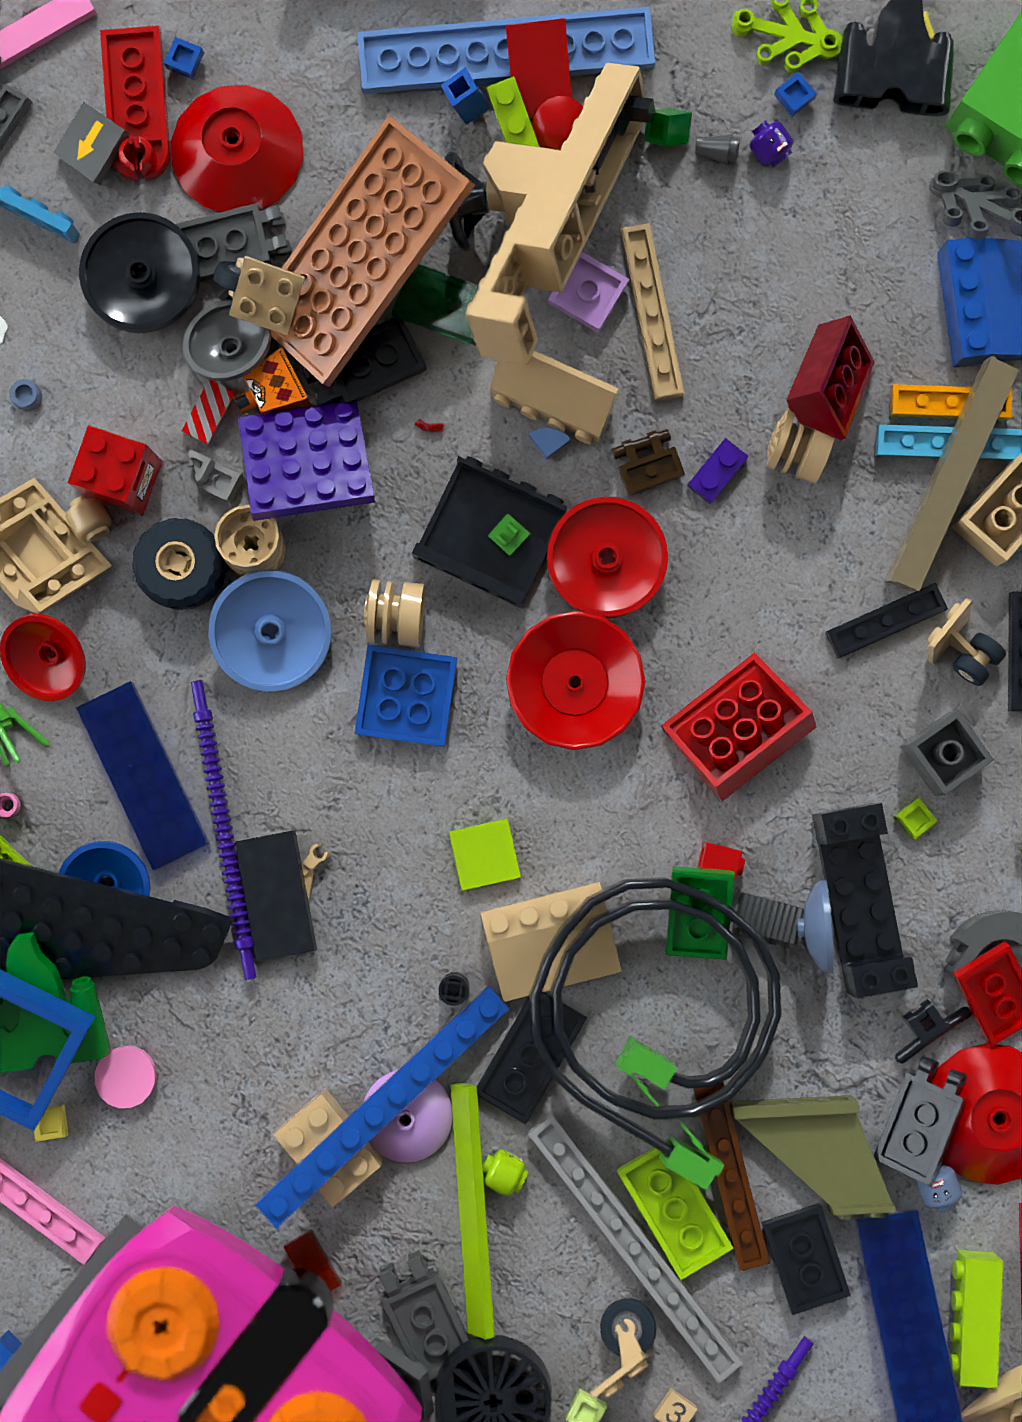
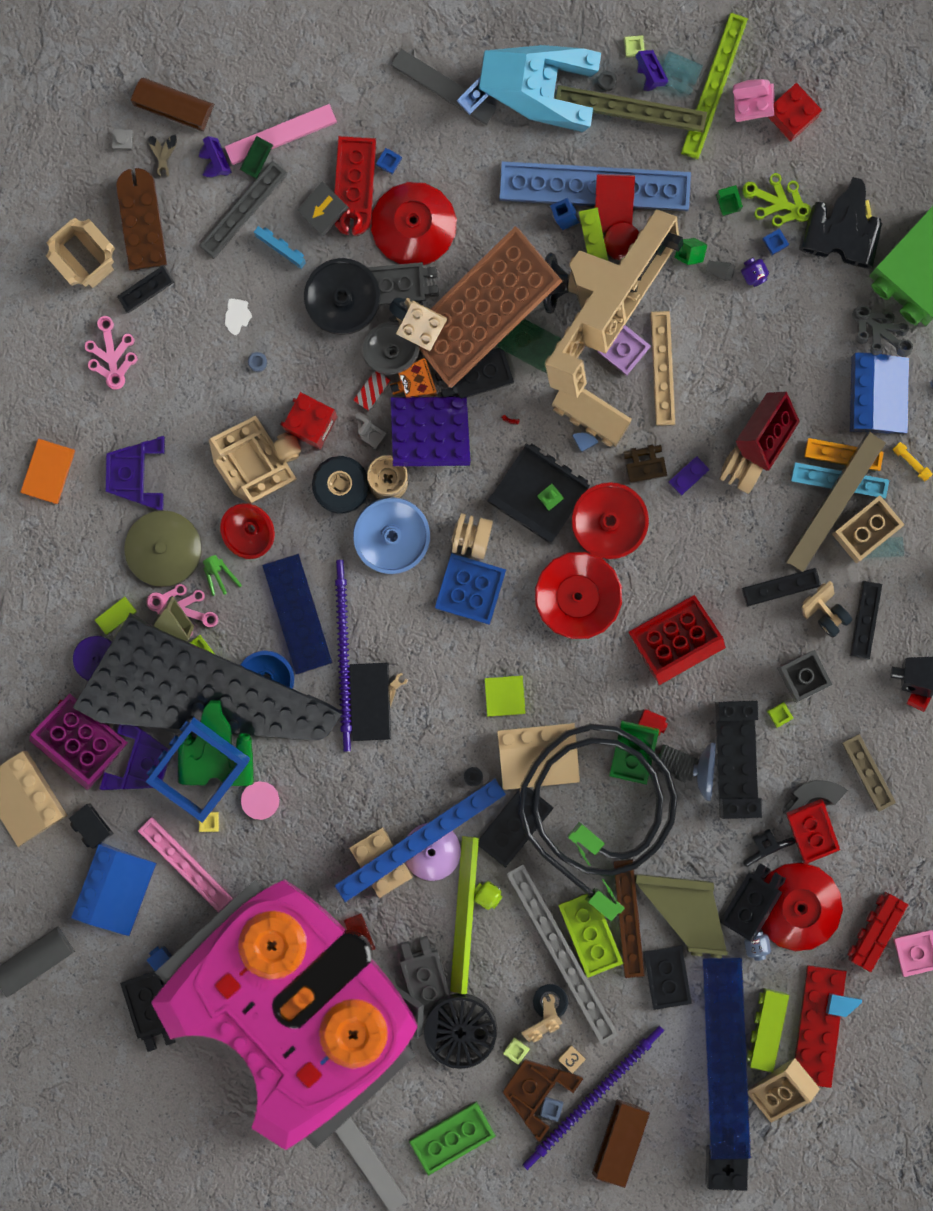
camera: 15 degrees right, 0 degrees up
(714, 41) = (729, 200): none -> green panel

